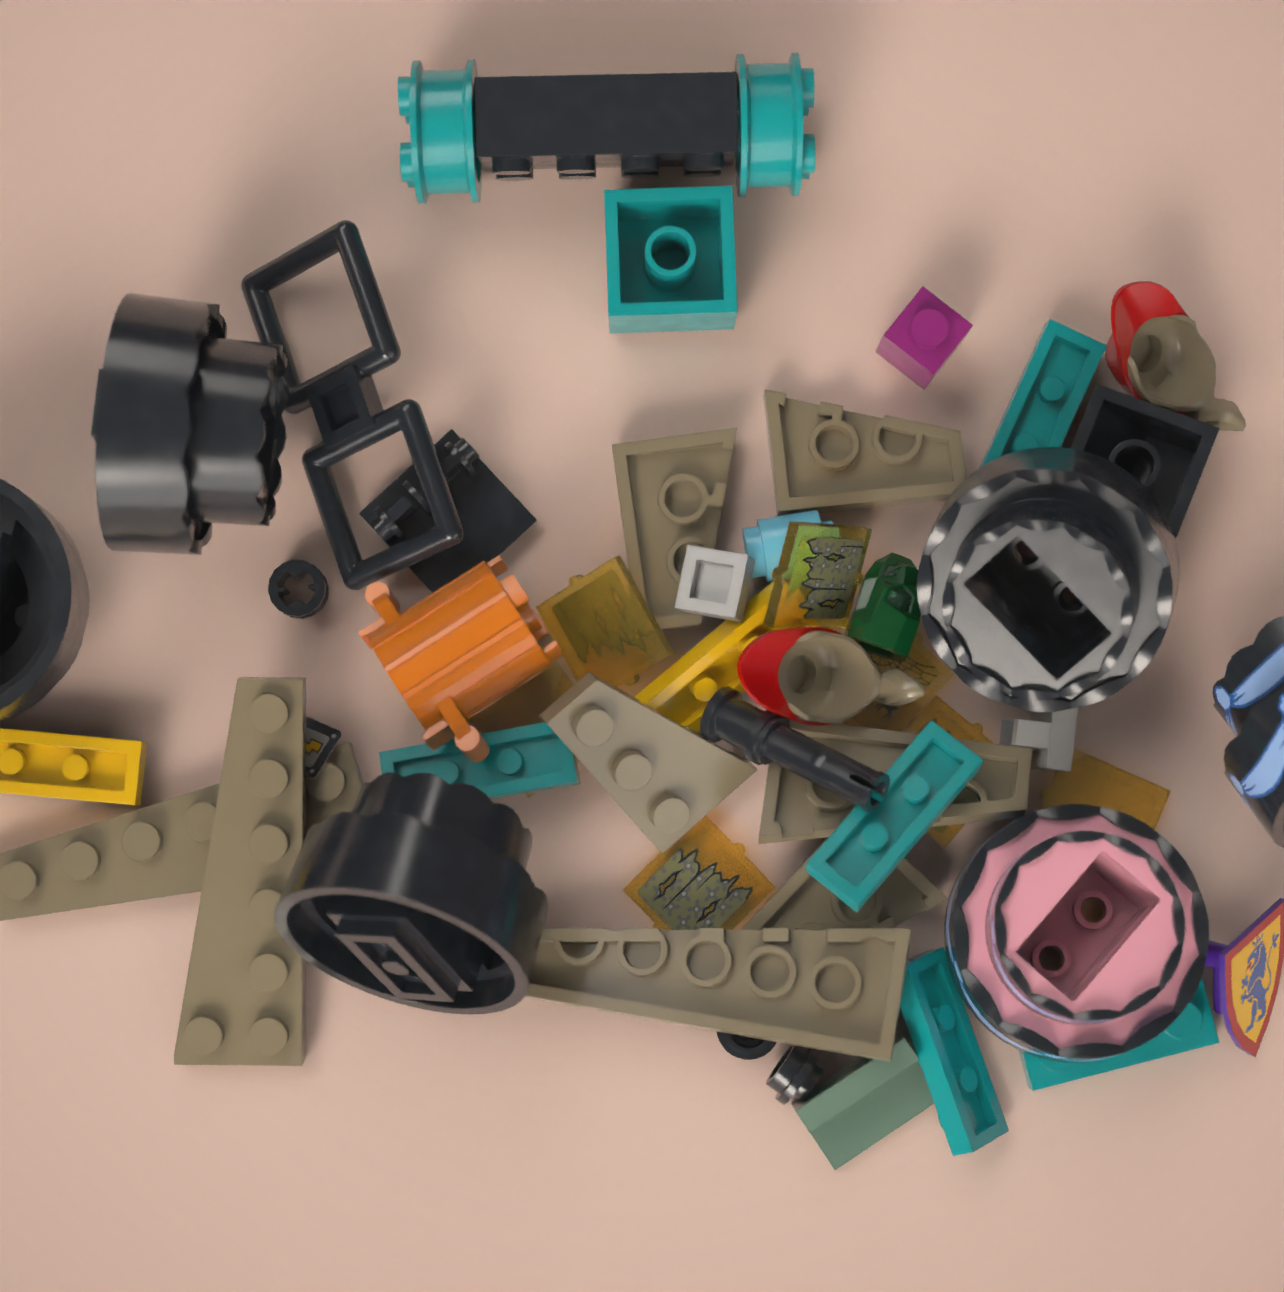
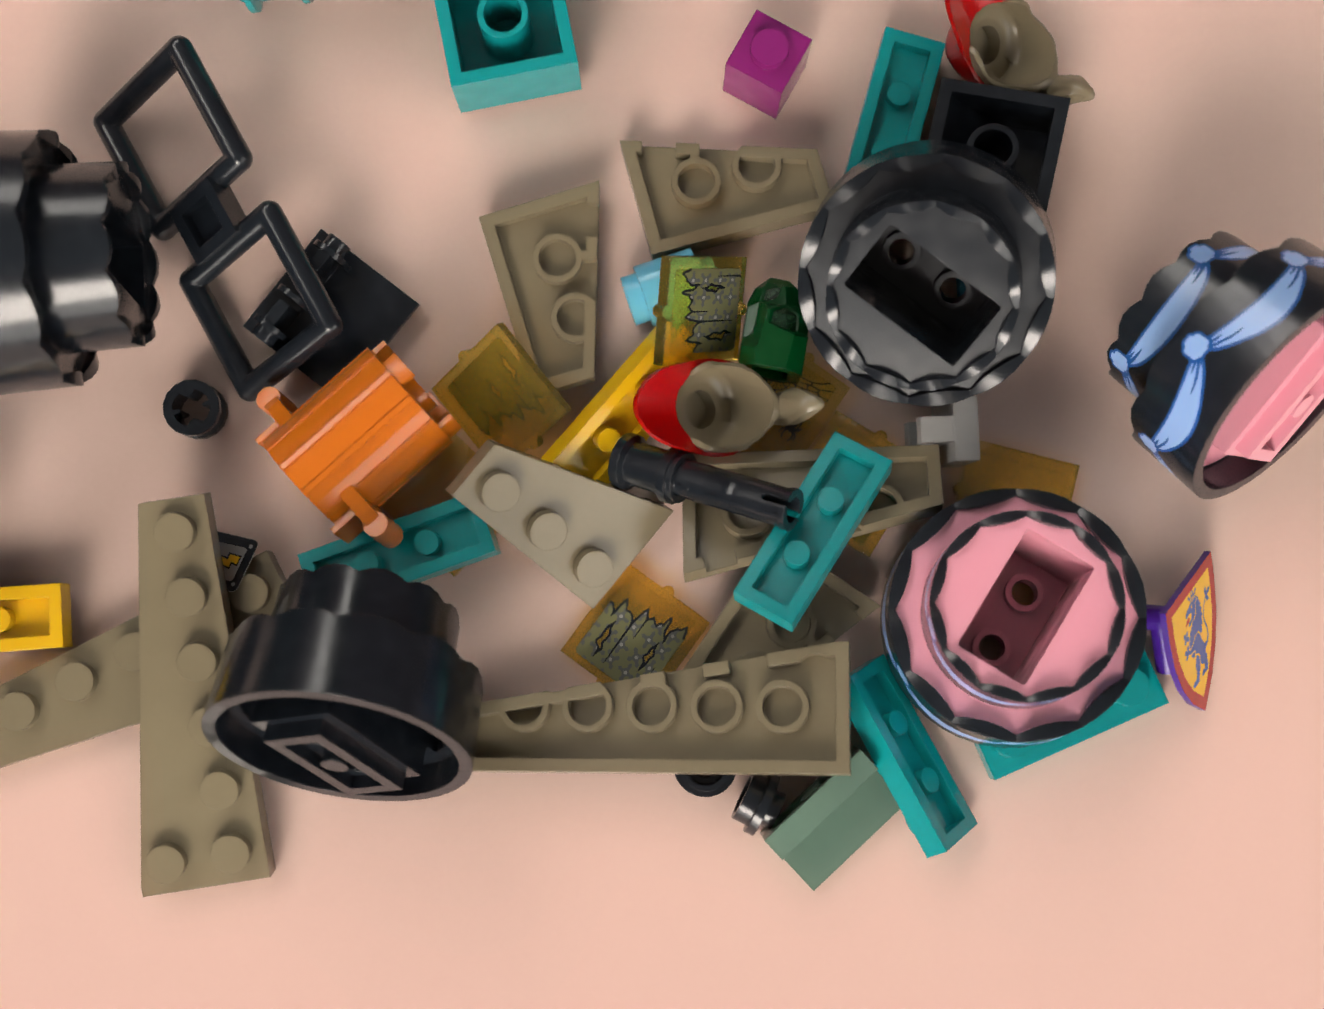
camera: 10 degrees left, 0 degrees up
(714, 583) = (600, 333): light grey tile -> none

